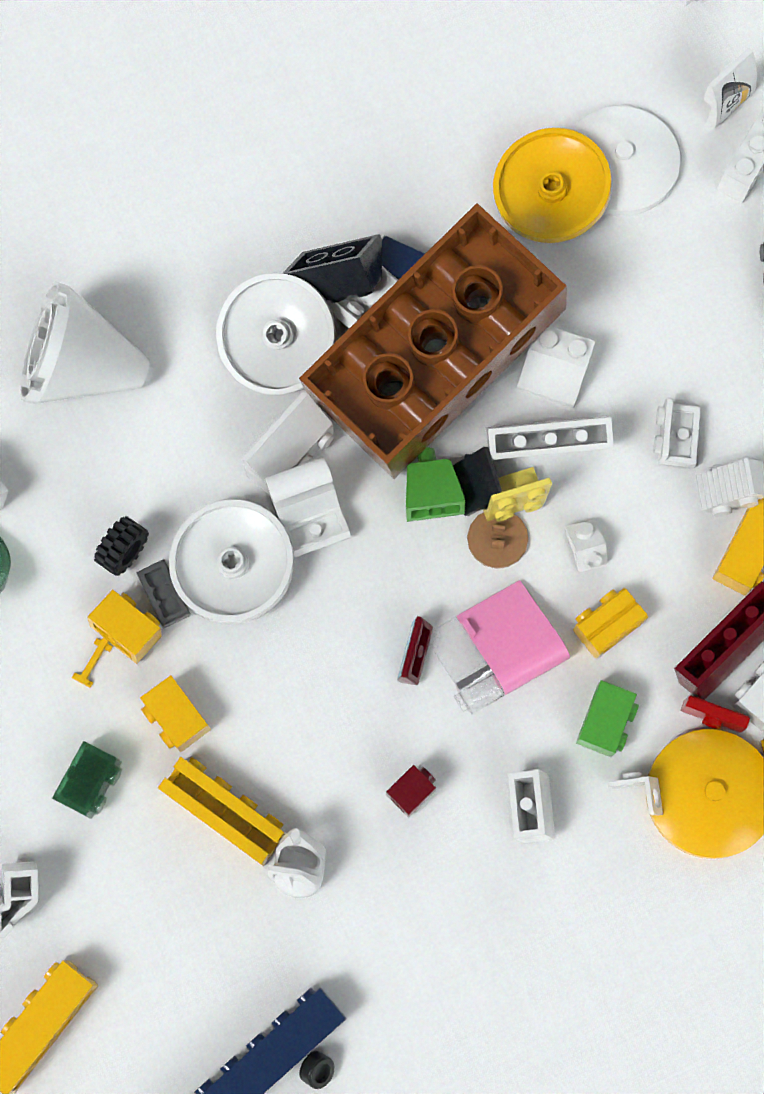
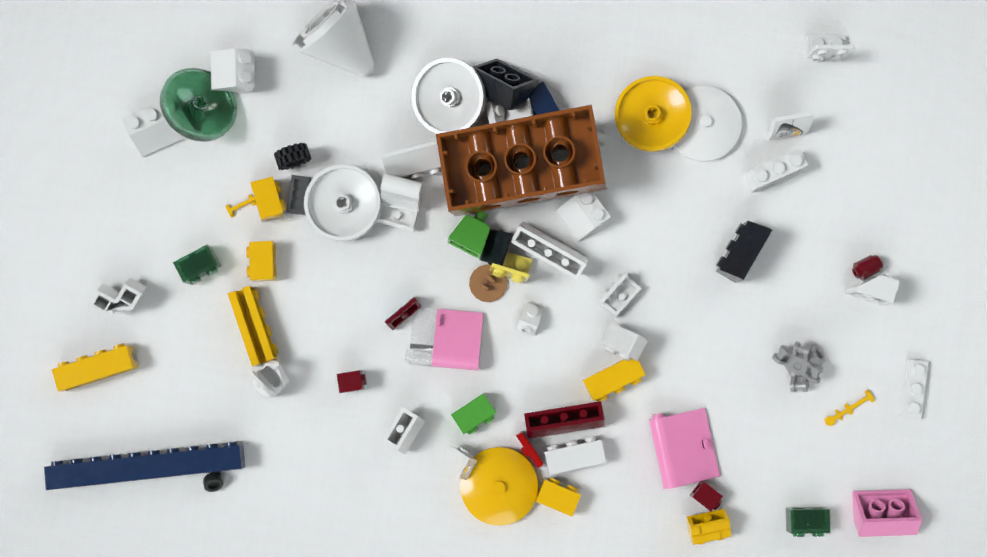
camera: 30 degrees right, 10 degrees up
(610, 622) = (511, 367): yellow brick -> none

